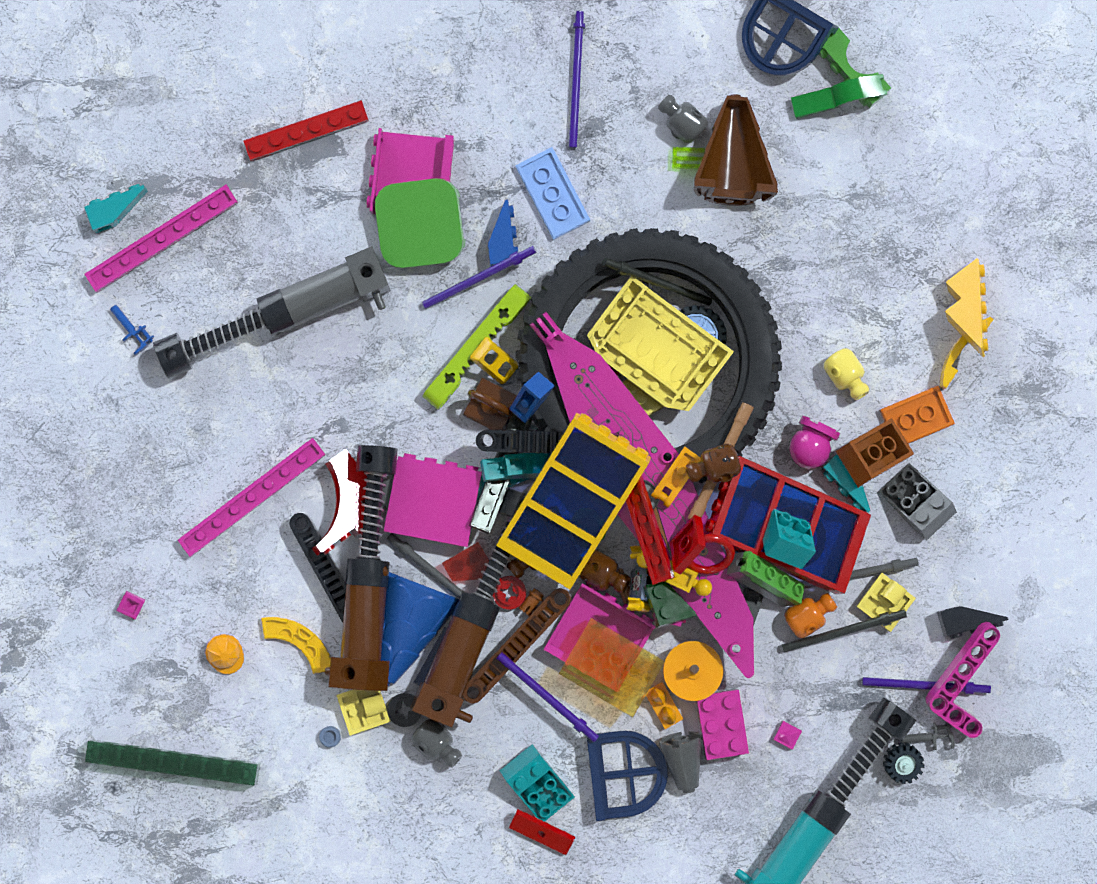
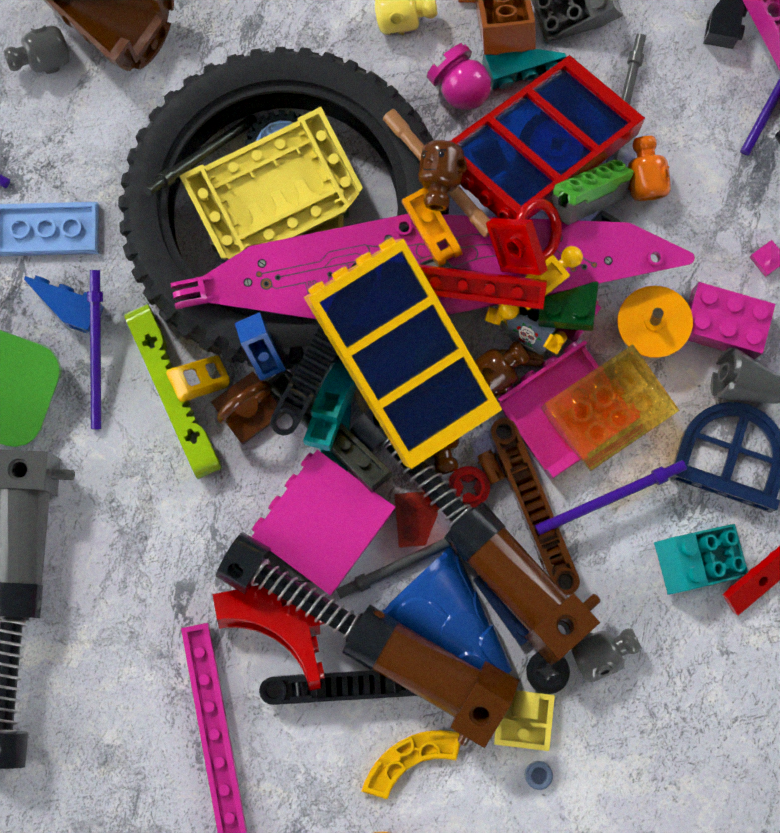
camera: 65 degrees left, 5 degrees down
(663, 705) = (679, 375): light orange tile -> none
(675, 158) = (78, 82): clear neon green tile -> none
(788, 539) = (562, 138): teal slope -> none
(883, 597) = (670, 87): light yellow plate -> none
(884, 619) = (690, 94): pearl dark grey bar -> none

